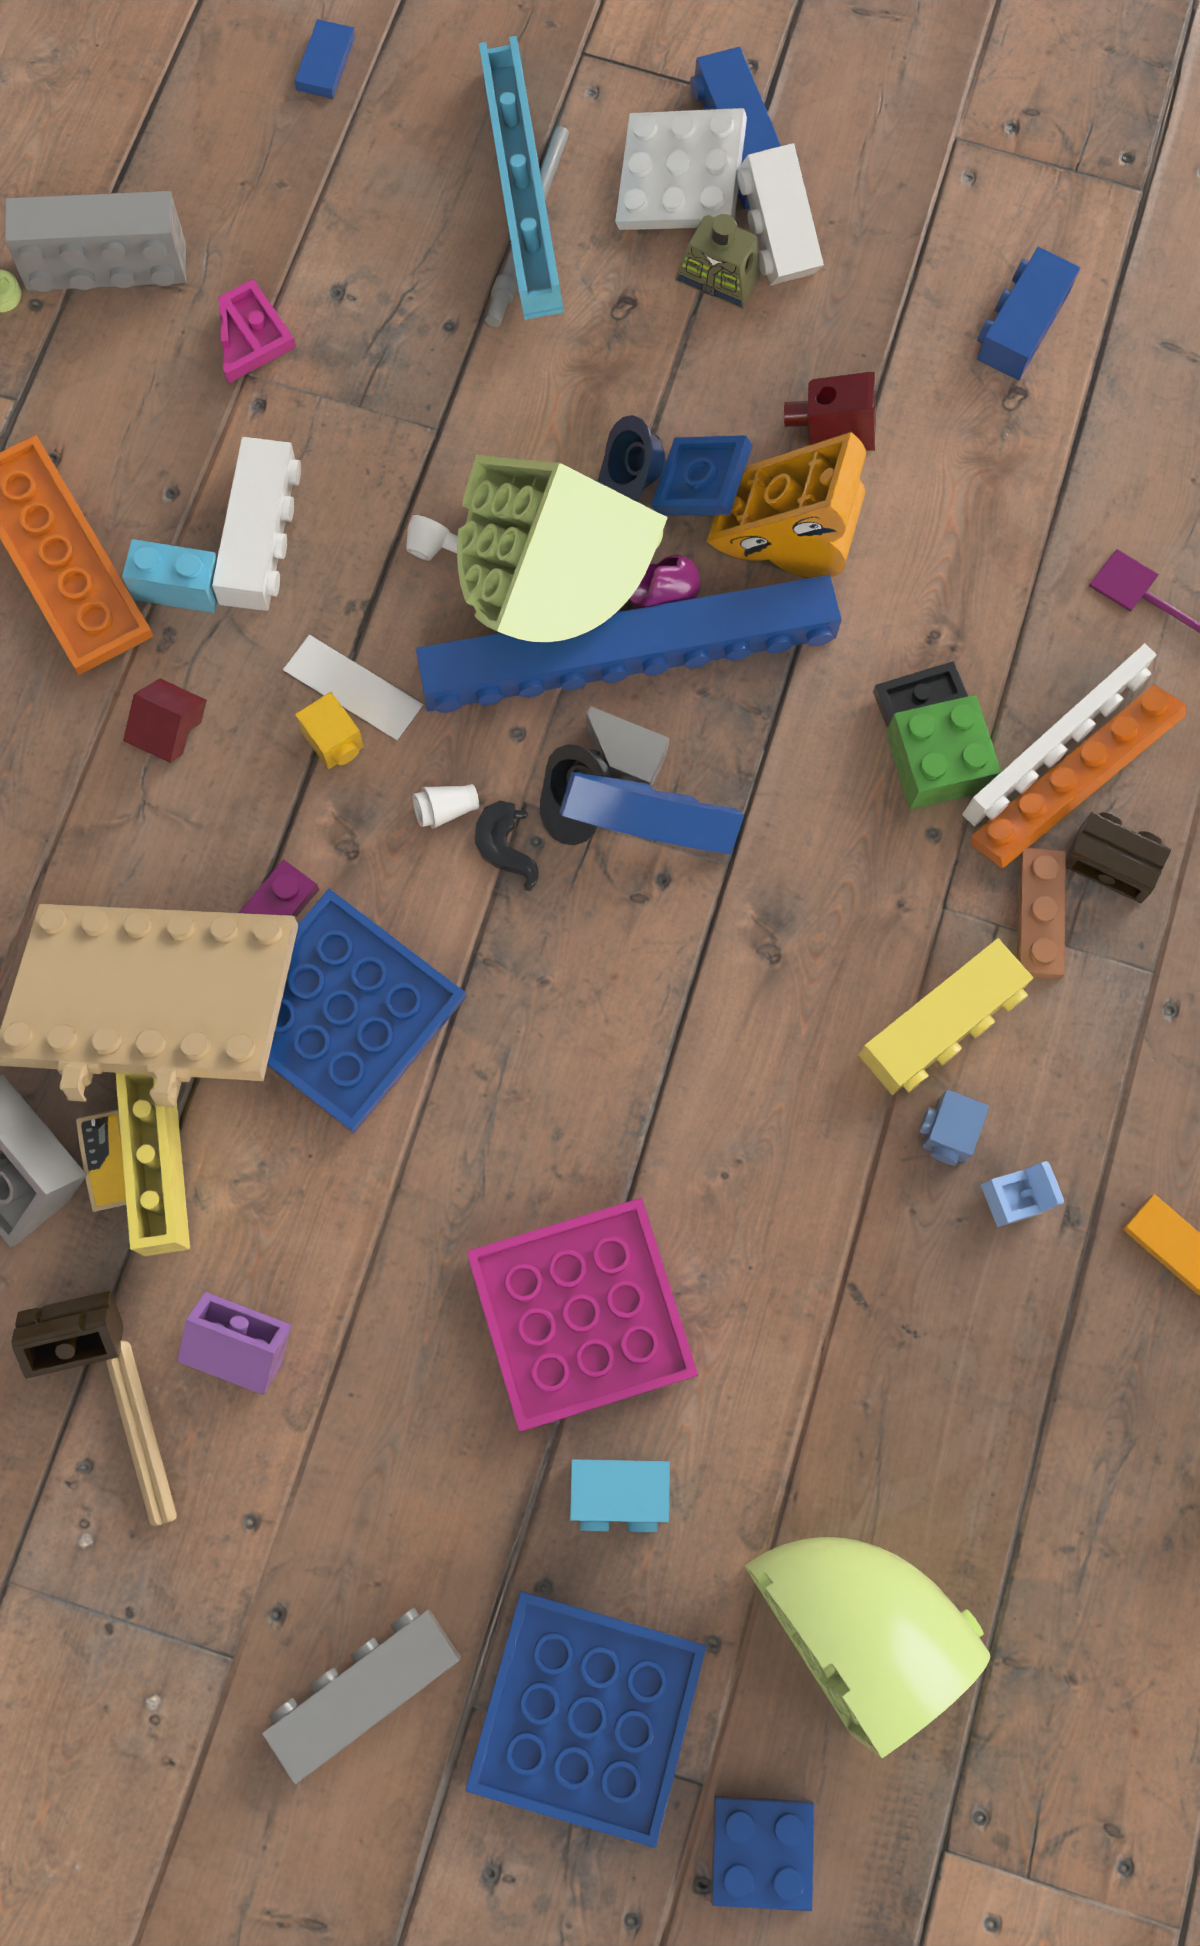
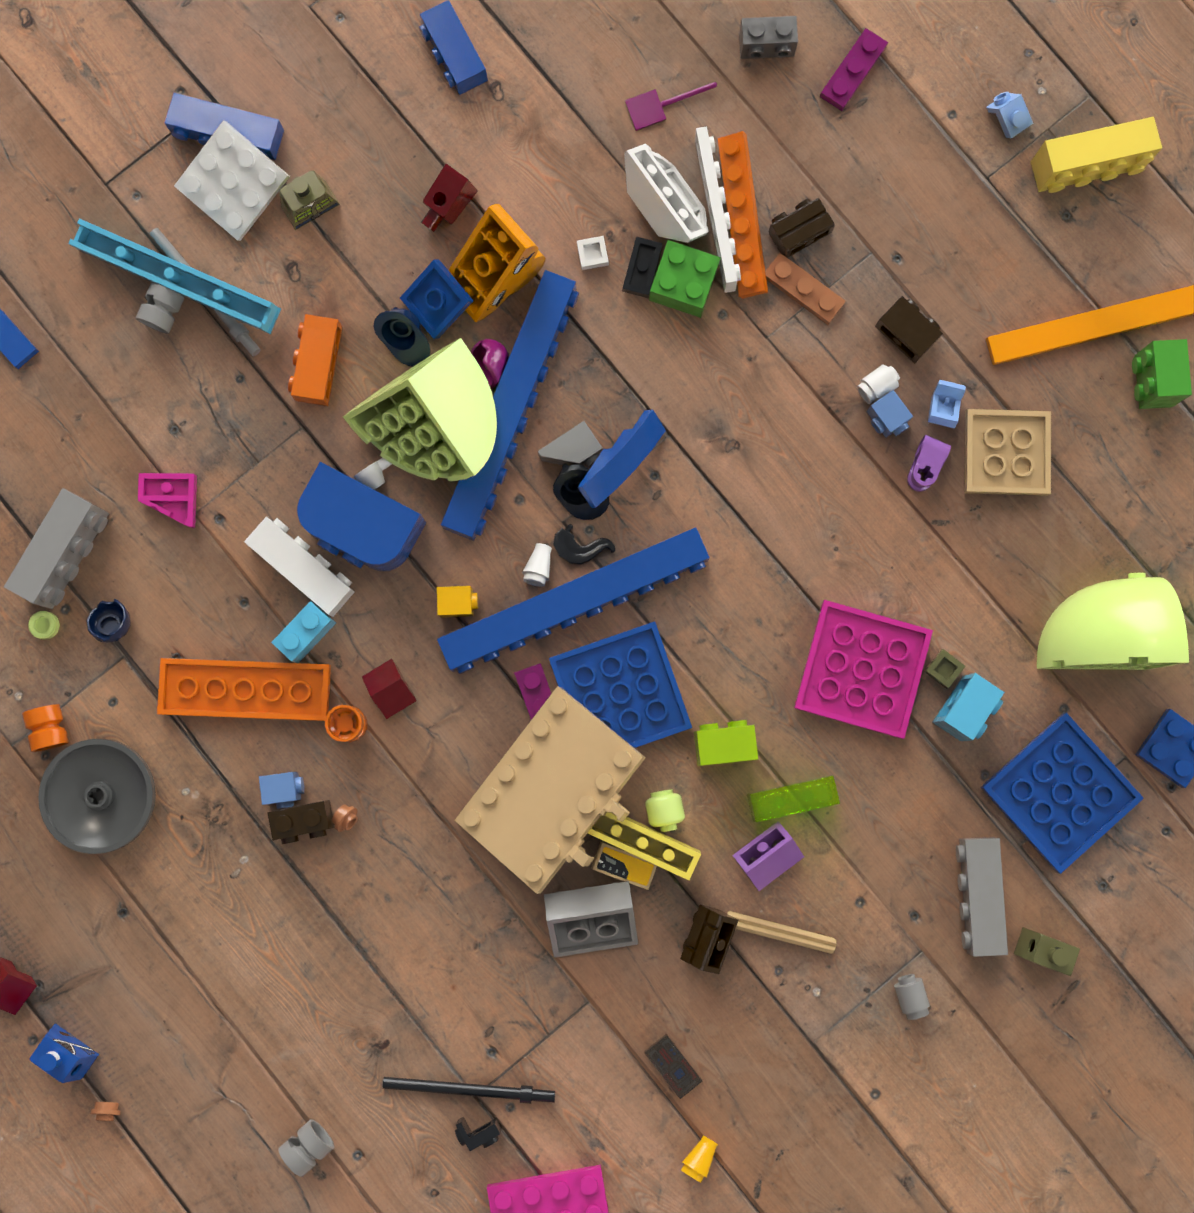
camera: 50 degrees left, 10 degrees up
(46, 353) = (108, 621): none -> dark blue hair
(84, 693) = (346, 723): none -> orange wheel
(153, 1683) = (912, 996): none -> light grey brick
(216, 1165) = (665, 810): none -> yellowish green head
(336, 1328) = (793, 798): none -> clear neon green brick
(336, 1846) = (1047, 951): none -> olive torso
(351, 1183) = (725, 745): none -> lime brick
(353, 548) = (357, 521): none -> blue brick
(353, 687) = (432, 572): white sticker -> none
(429, 875) = (574, 599): none -> blue brick
(471, 184) = (159, 308): none -> light grey wheel
(529, 390) = (315, 360): none -> orange brick
(655, 1428) = (944, 668): none -> olive plate
(780, 214) = (303, 145): white brick -> none
(894, 624) = (592, 253): none -> white plate
(931, 1221) = (929, 460): none -> medium lavender piece
(945, 1017) = (830, 378): light yellow brick -> none
(986, 1085) = (878, 383): none -> white brick
(1017, 1324) = (1007, 452): none -> tan plate
(1031, 659) = (663, 196): none -> white wedge
(1087, 1078) = (909, 329): none -> dark brown brick

